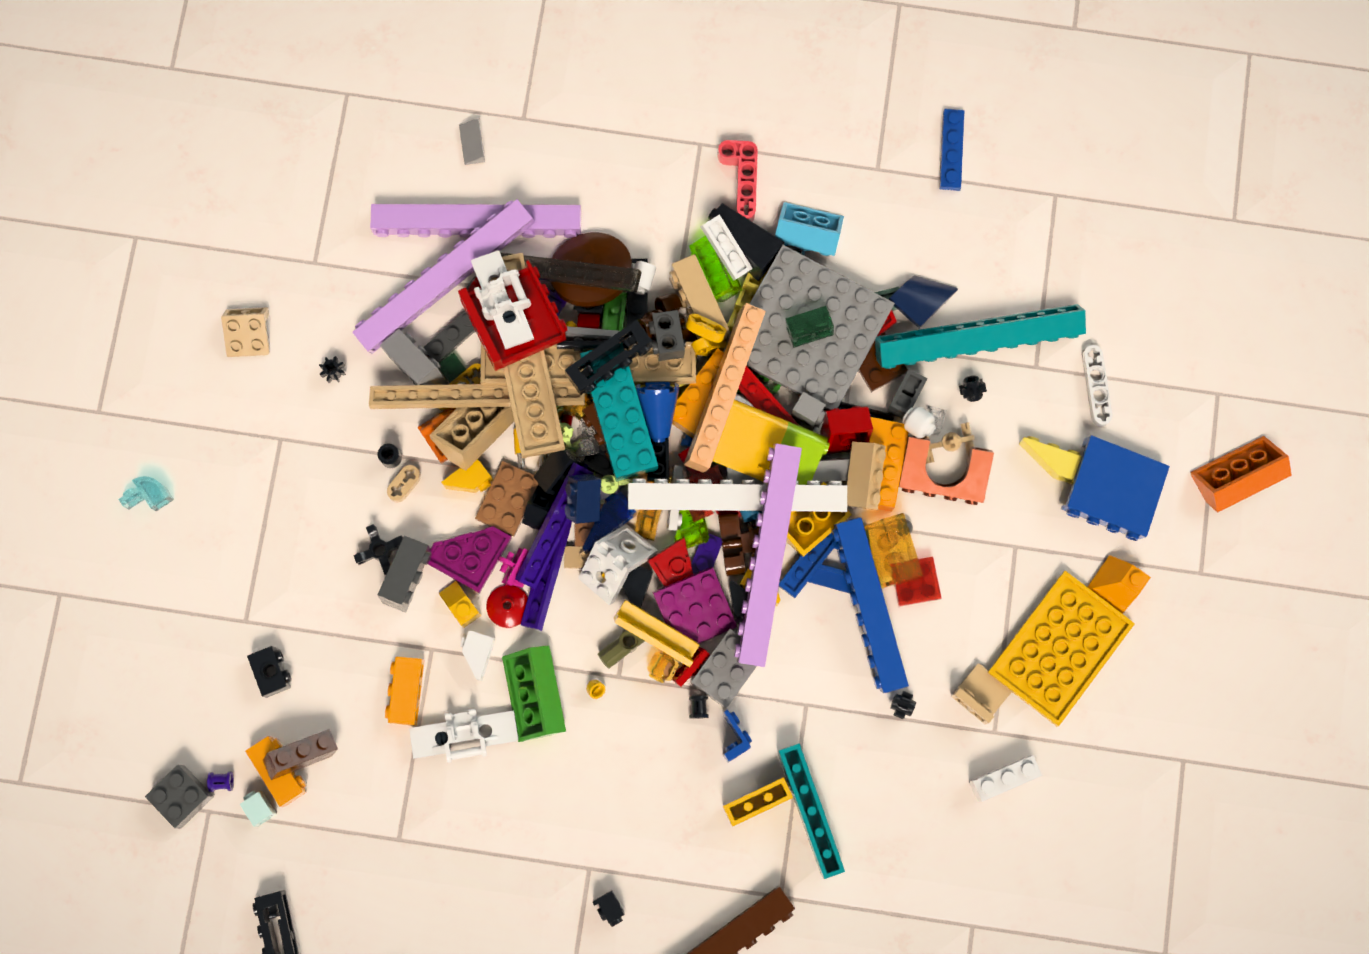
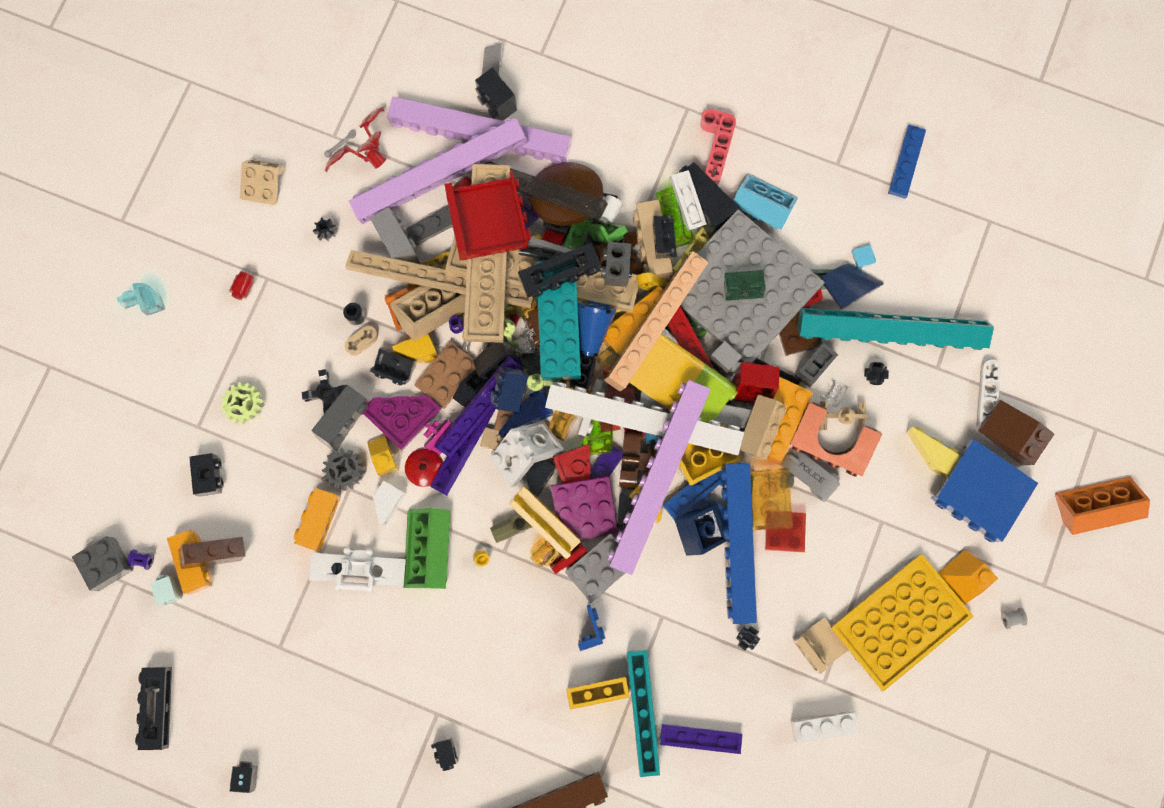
camera: 20 degrees right, 0 degrees up
(255, 453) = (241, 285): none -> red brick
(295, 578) = (233, 405): none -> yellowish green gear
(333, 257) = (351, 135): none -> light grey hinge
(362, 268) = (371, 145): none -> red plant
(411, 628) = (346, 462): none -> dark grey gear
(447, 503) = (393, 366): none -> black bracket
(451, 367) = (426, 250): clear green plate -> none
(486, 178) = (495, 95): none -> black brick
(495, 302) = (474, 201): white piece -> none
(505, 446) = (456, 328): none -> dark purple pin
(647, 304) = (610, 233): none -> bright green bracket
(681, 441) = (607, 359): none -> clear yellow brick
(698, 707) = (566, 595): black bush -> none
(705, 328) = (652, 265): yellow beam -> none
(711, 294) = (664, 237): none -> black hinge
(825, 601) = (700, 530): none -> dark blue slope
(879, 824) = (701, 739): none -> dark purple plate
(919, 422) = (821, 391): white head -> none
(929, 264) = (863, 256): none -> medium azure tile
(938, 518) = (811, 474): none -> light grey door
(1134, 418) = (1016, 433): none -> reddish brown slope
(1177, 615) = (1014, 618): none -> light grey bush

